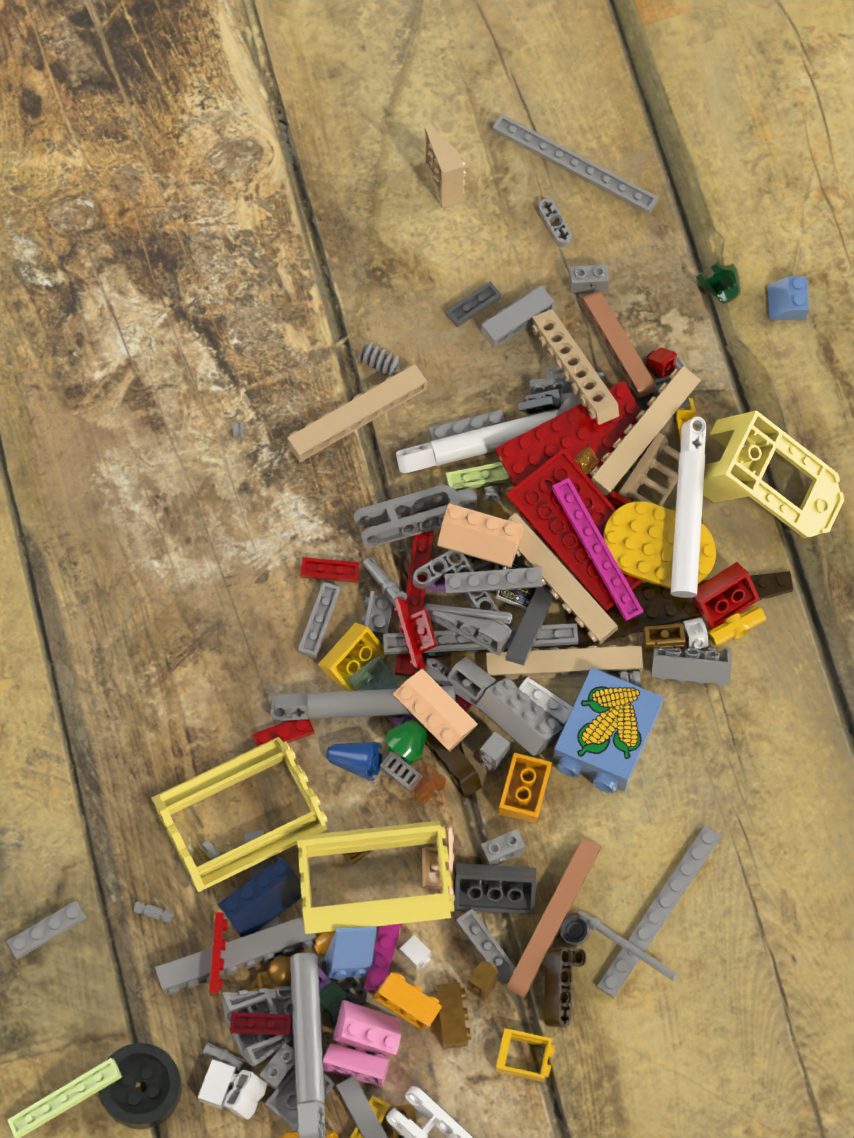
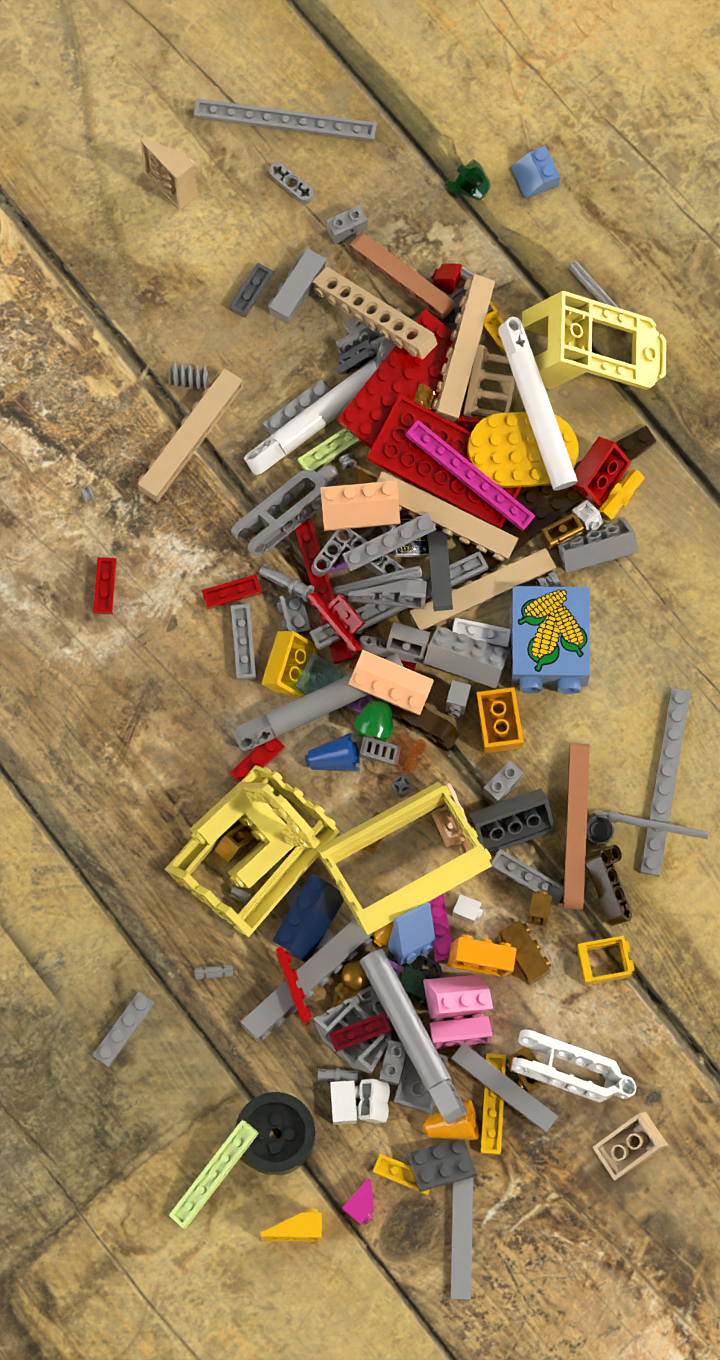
camera: 25 degrees left, 5 degrees up
(216, 518) = (105, 585): none -> red plate
(227, 800) = (234, 843): none -> pearl gold slope
(262, 791) = (250, 806): none -> light yellow bracket
(407, 808) = (403, 783): none -> flat silver wheel
(795, 421) = (591, 285): none -> light grey axle

